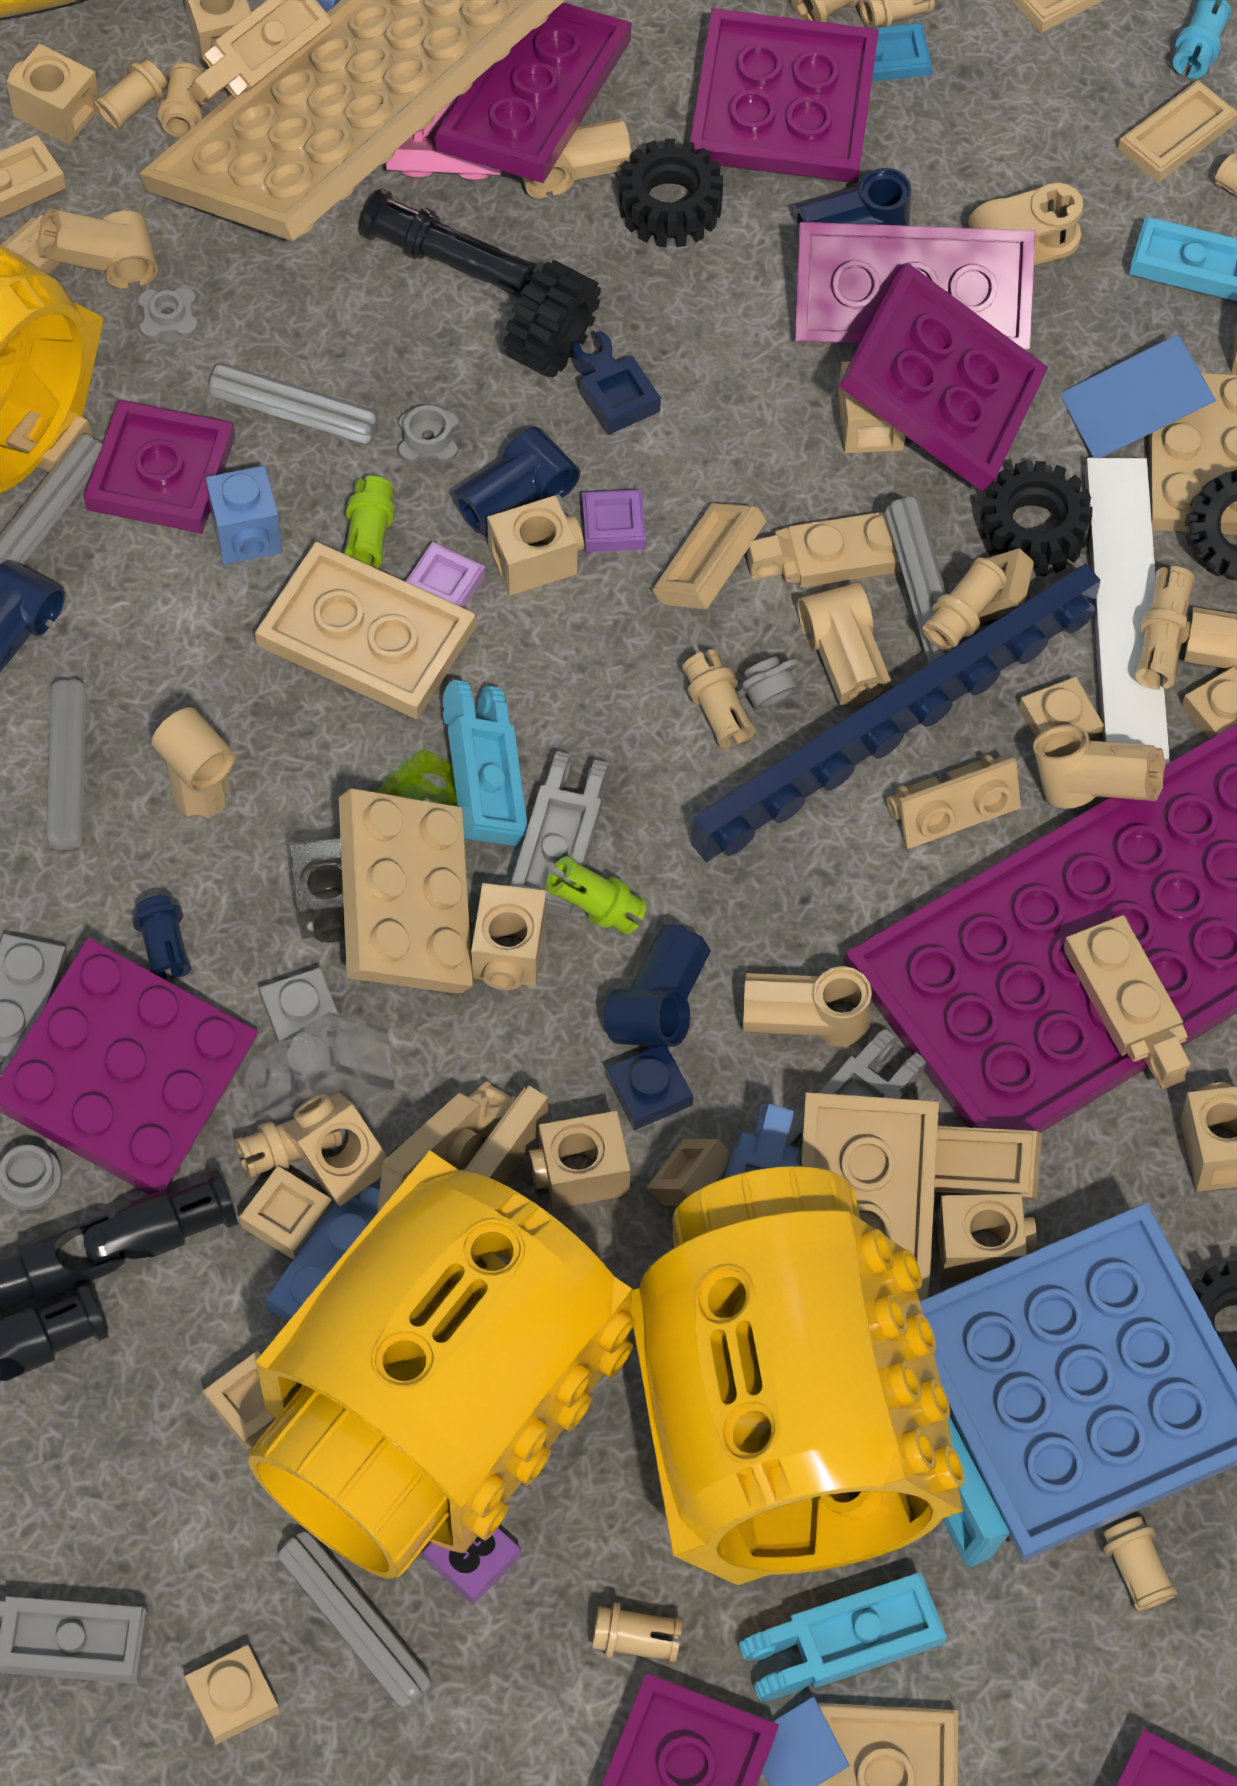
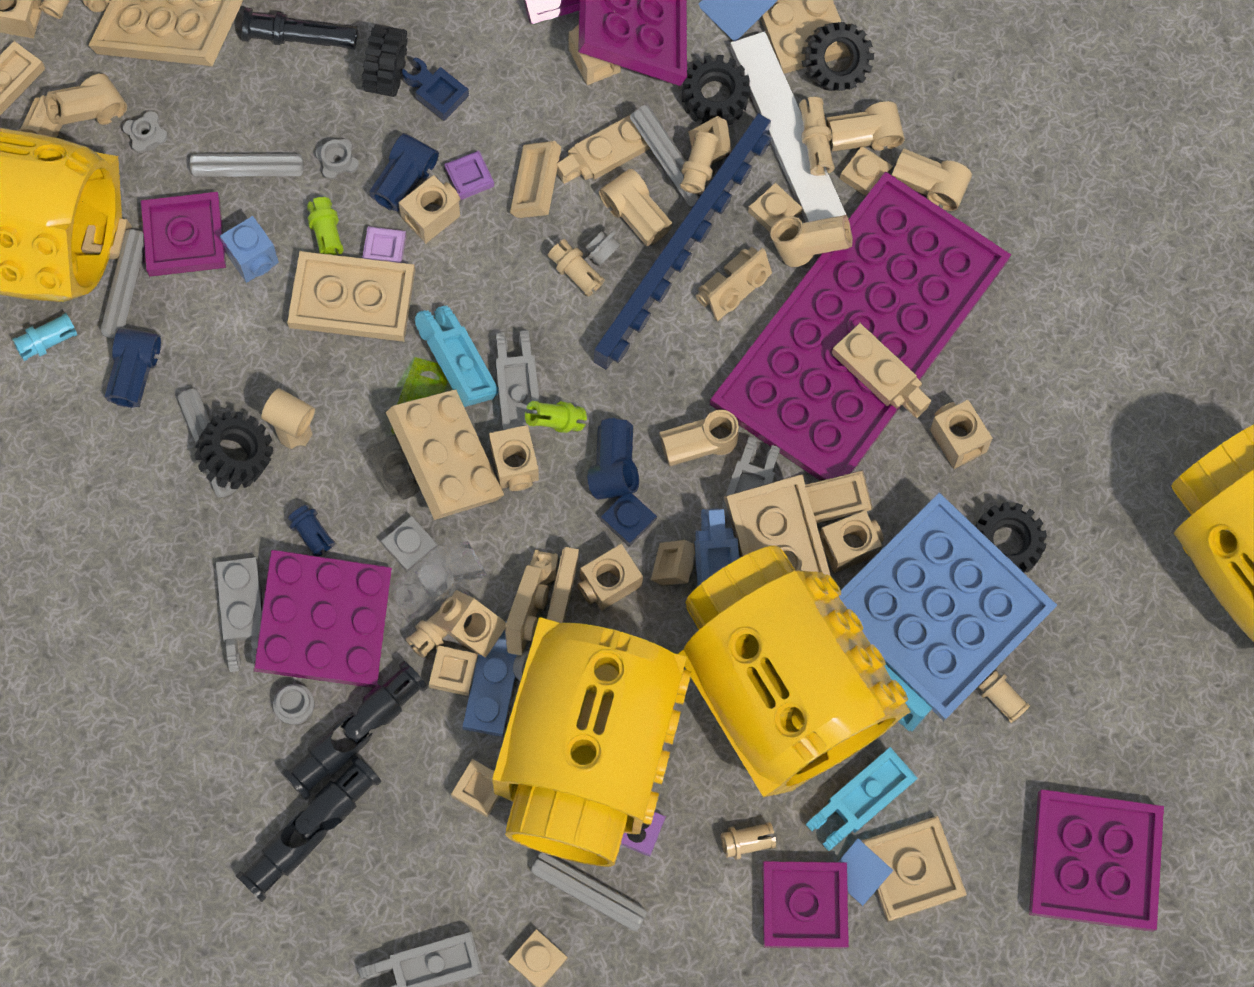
camera: 25 degrees left, 10 degrees up
(117, 761) = (245, 435): none -> black tyre

